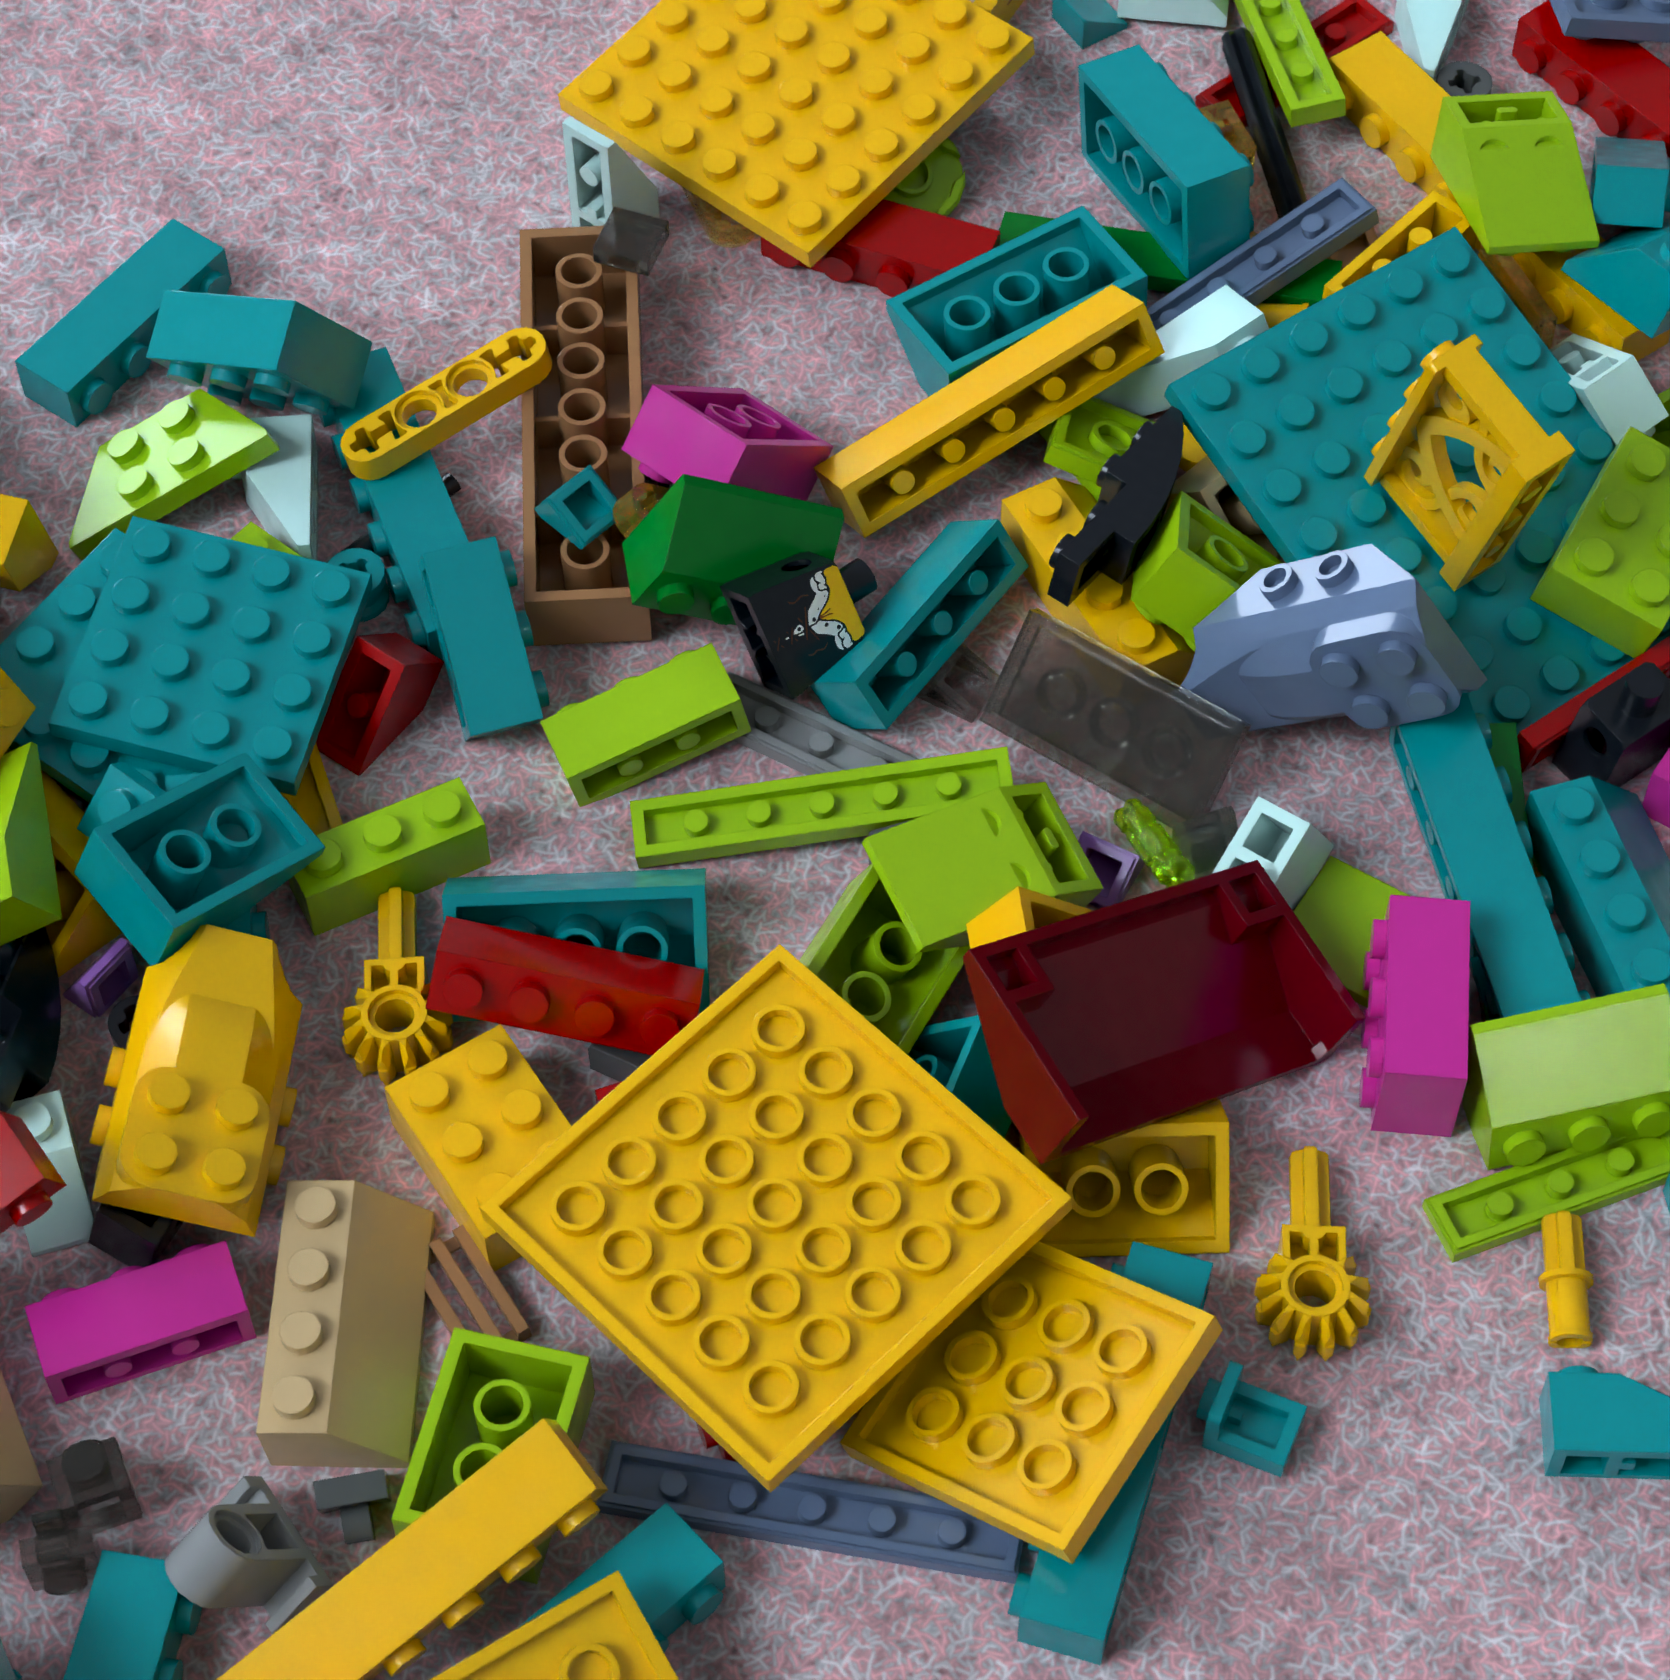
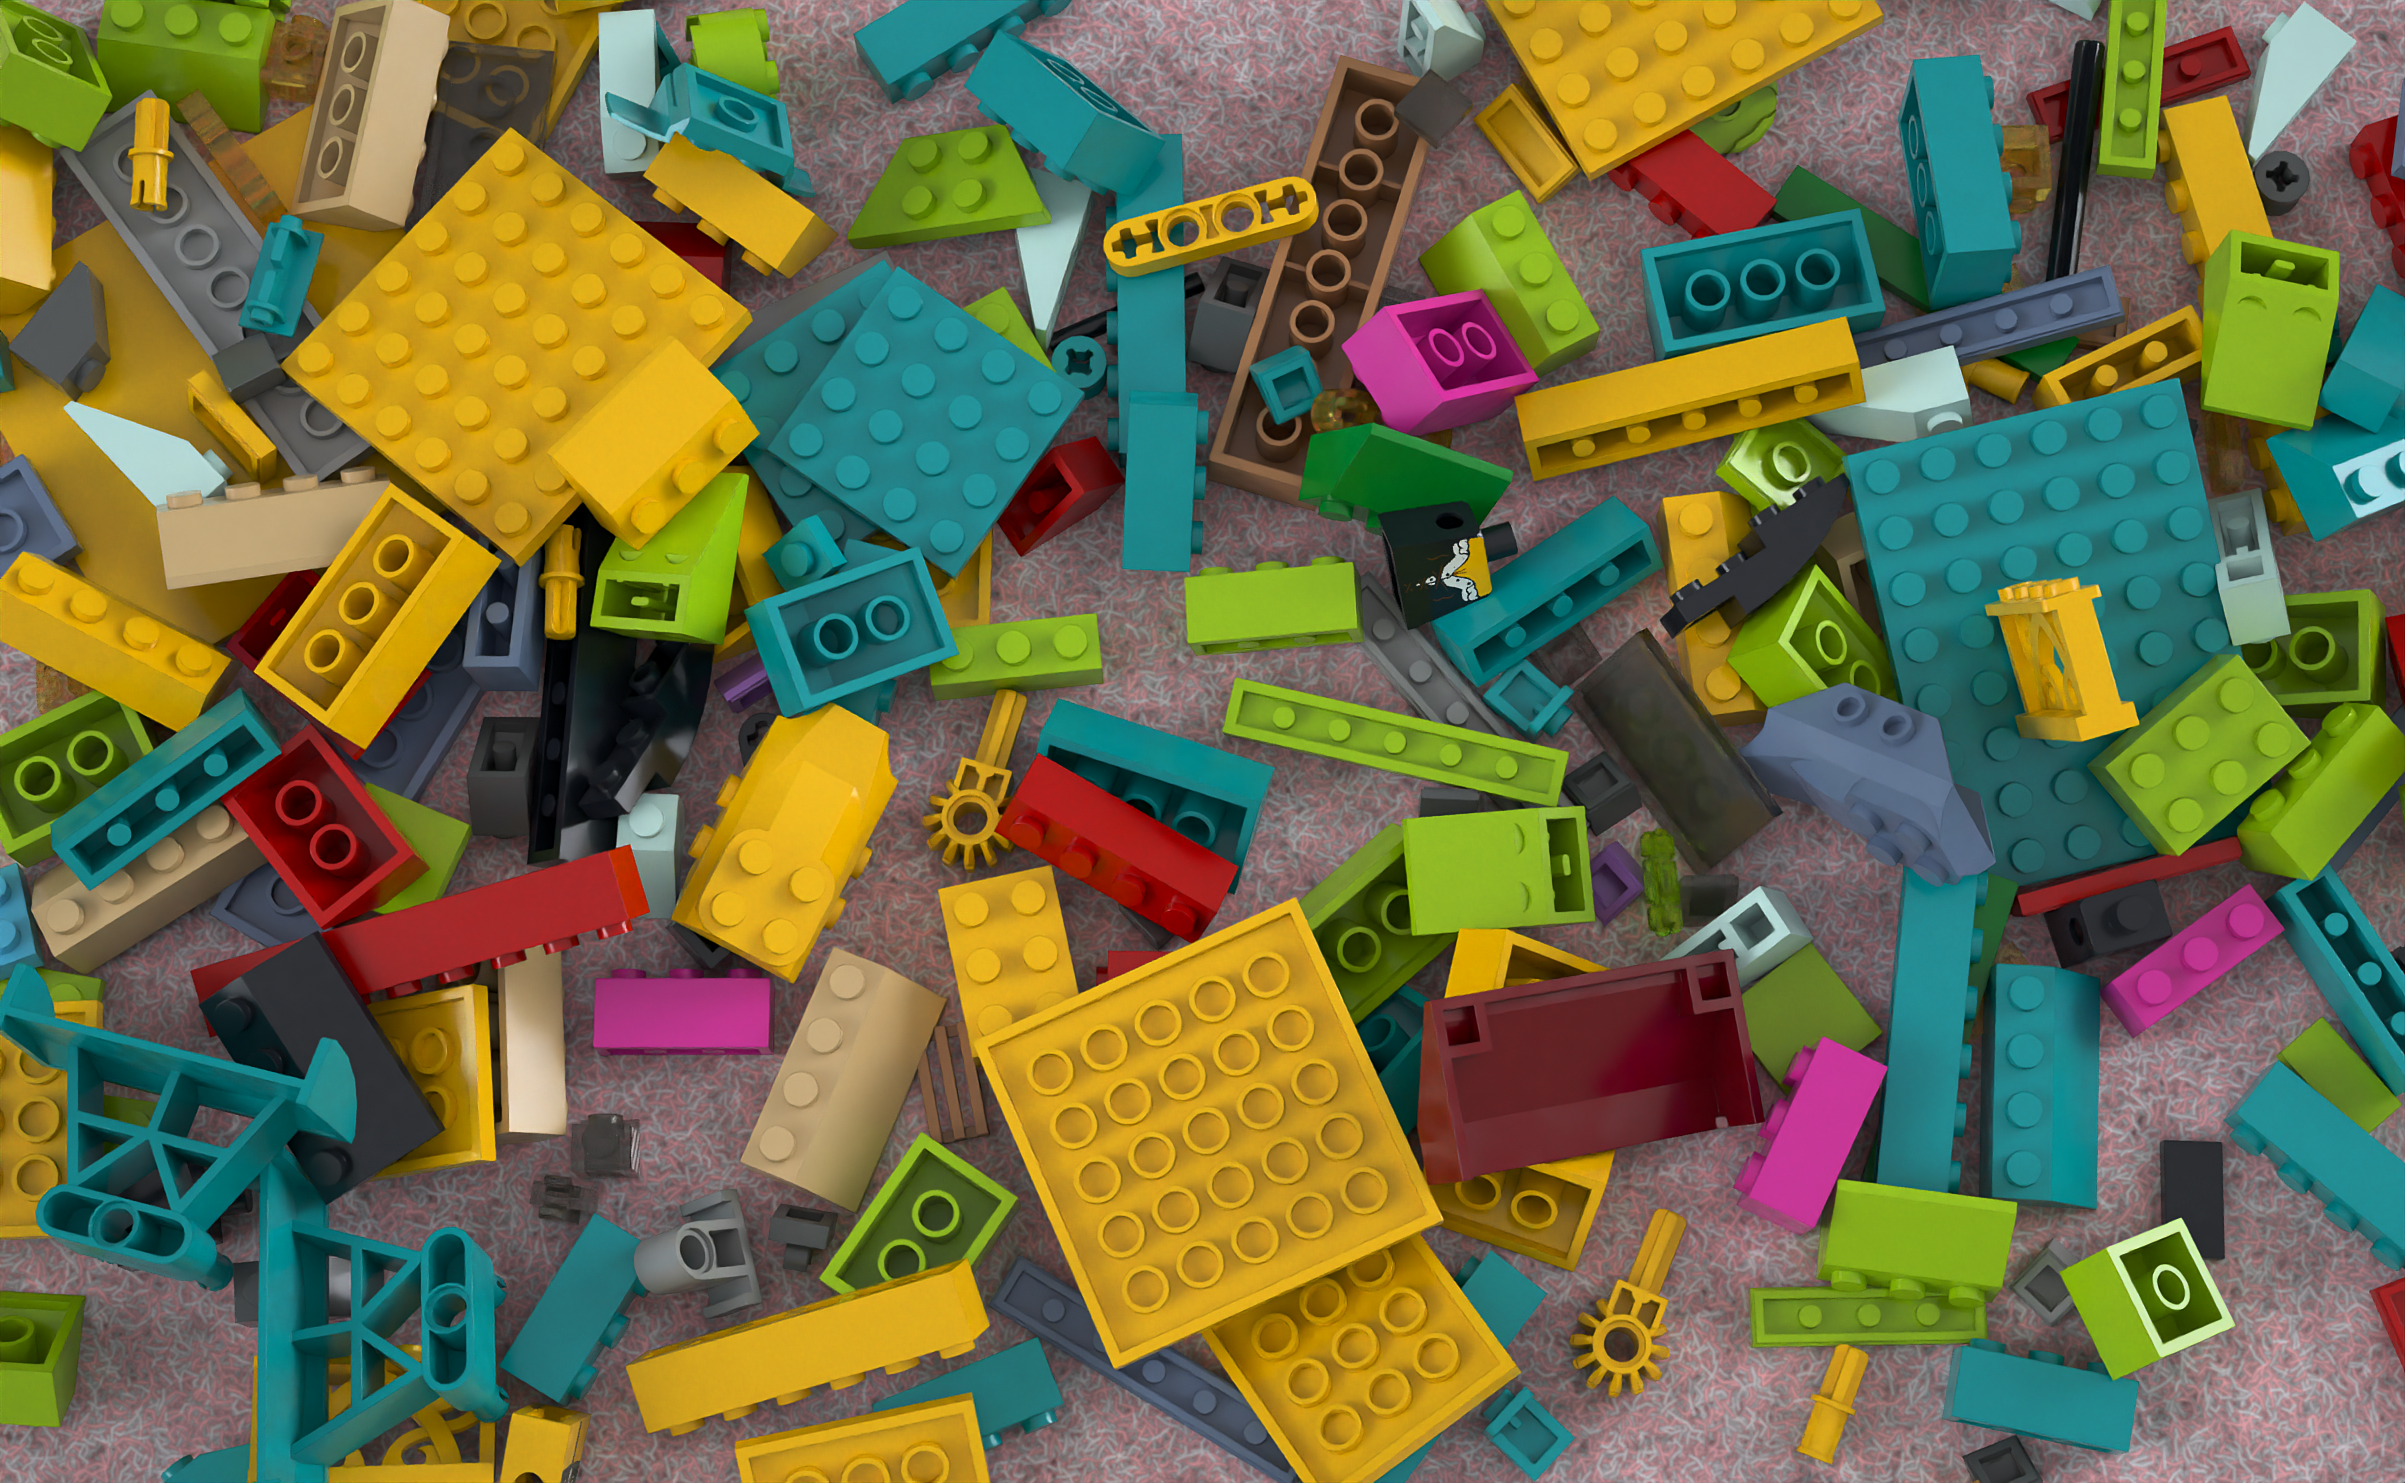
camera: 20 degrees right, 20 degrees up
(493, 496) = (1226, 315): none -> dark grey slope
(736, 268) = (1528, 143): none -> yellow tile
(784, 367) = (1523, 278): none -> lime slope
(945, 727) = (1530, 701): none -> teal bracket
(1070, 785) = (1603, 791): none -> dark grey slope

